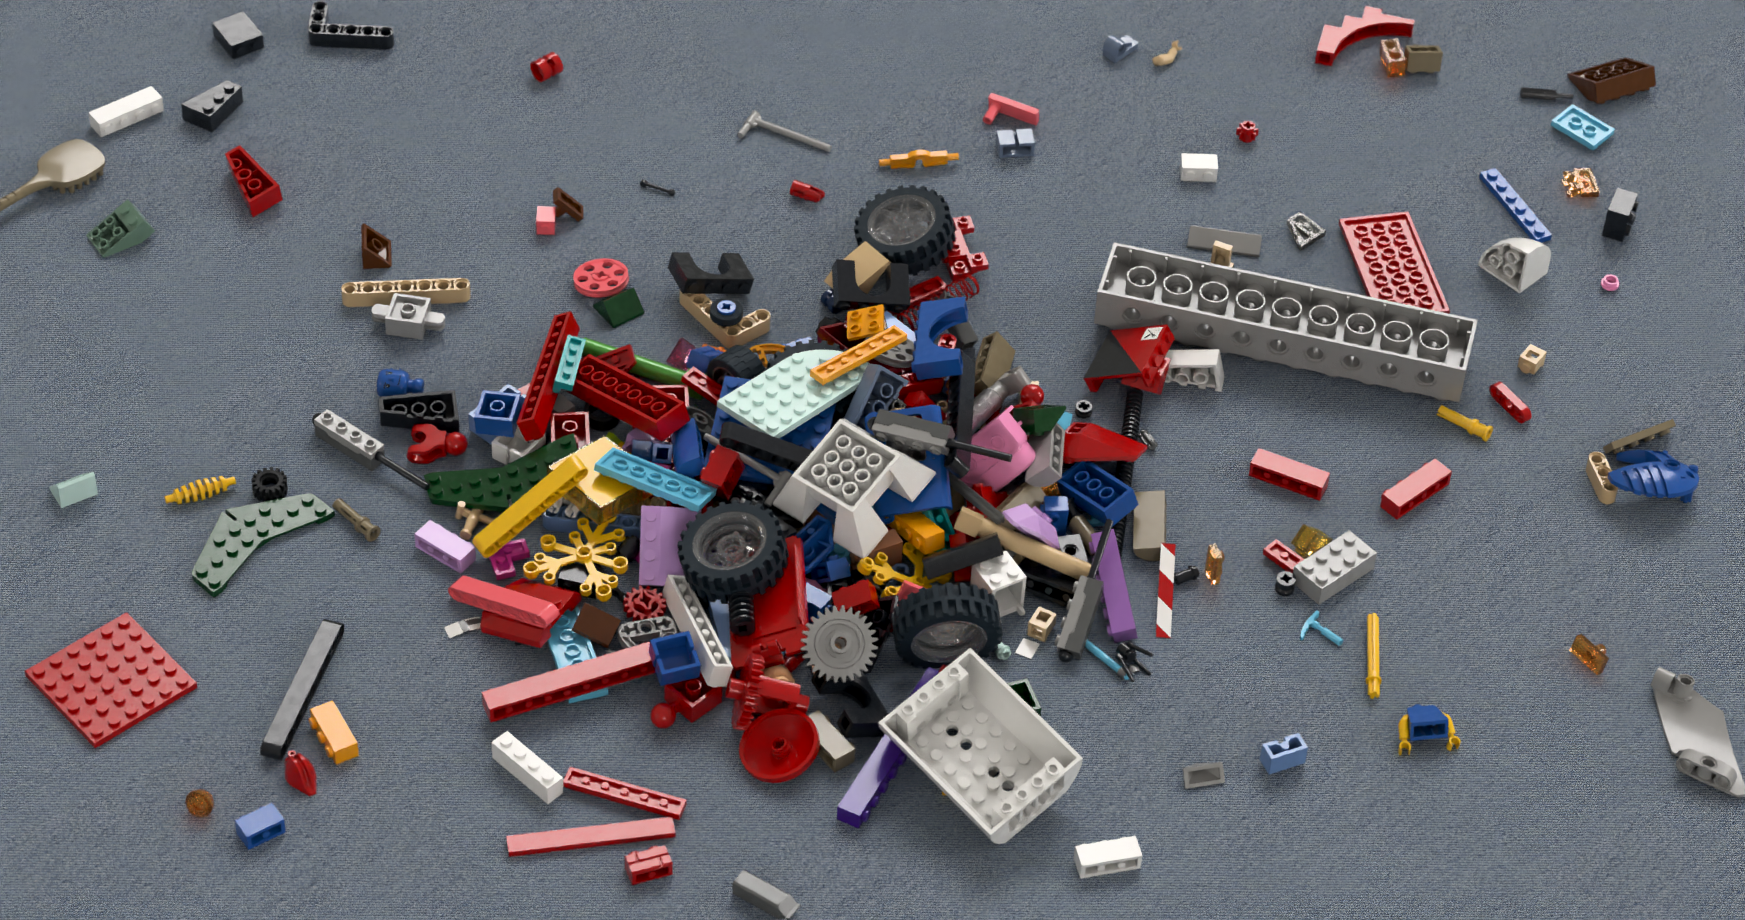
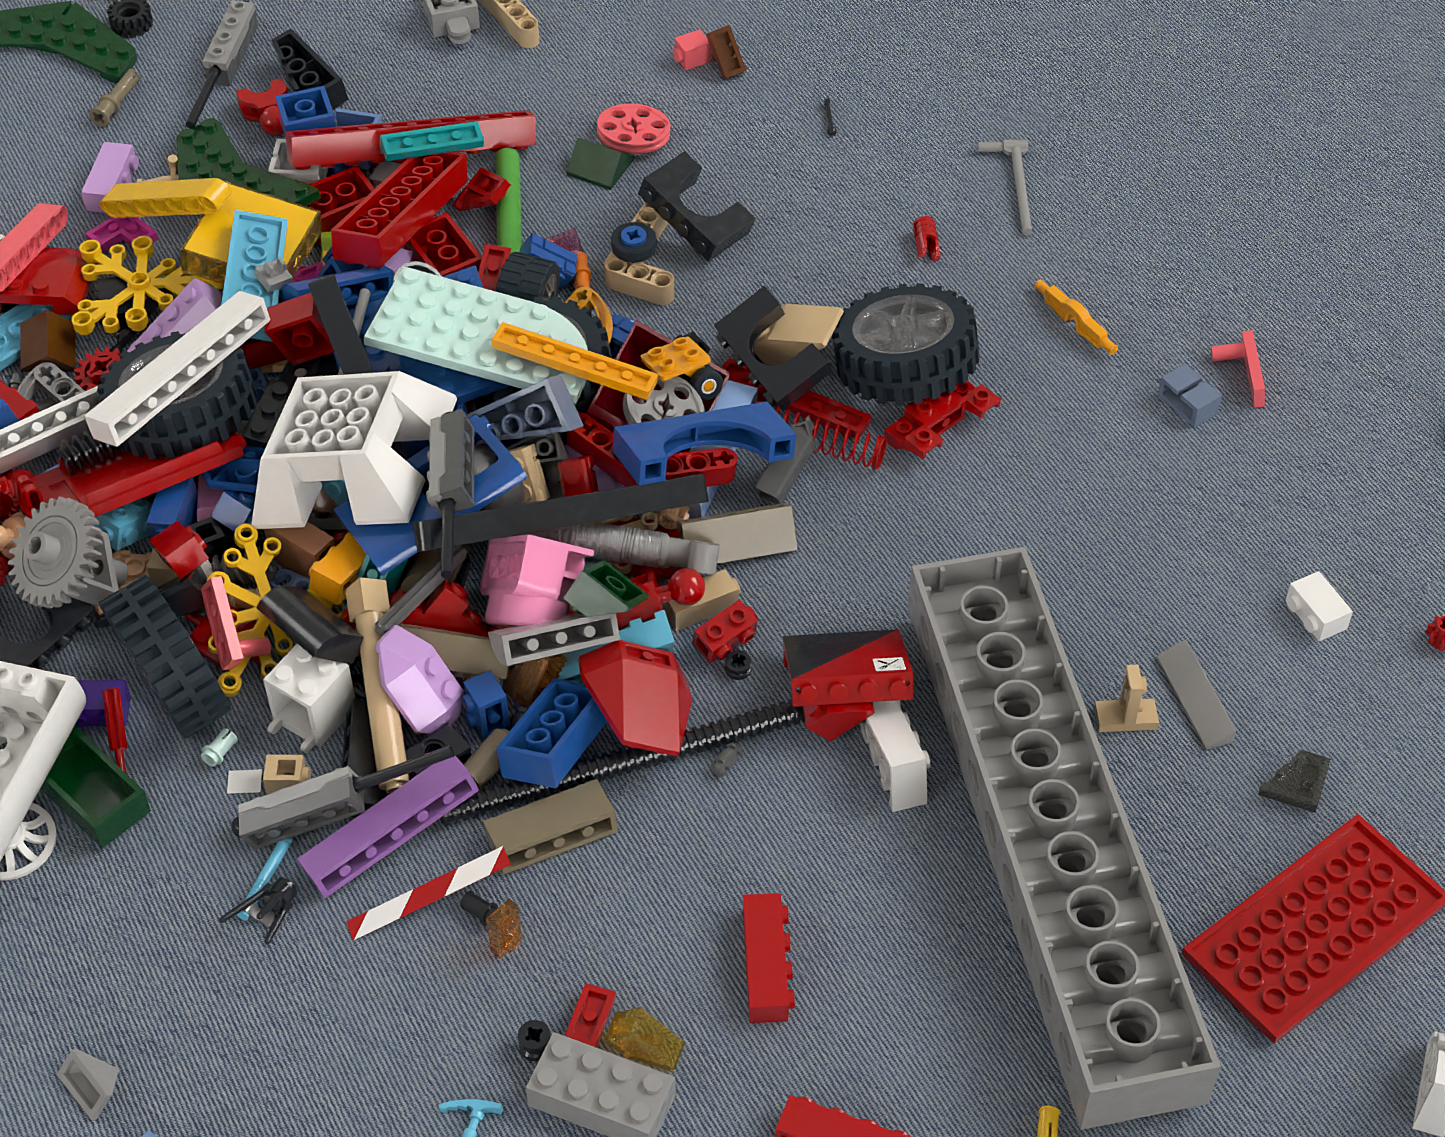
camera: 65 degrees right, 5 degrees up
(397, 382) = (339, 41): blue piece -> none
(667, 467) = (273, 274): none -> light grey tile
(739, 528) = (177, 368): none -> white brick
(1062, 394) = (725, 631): none -> red brick

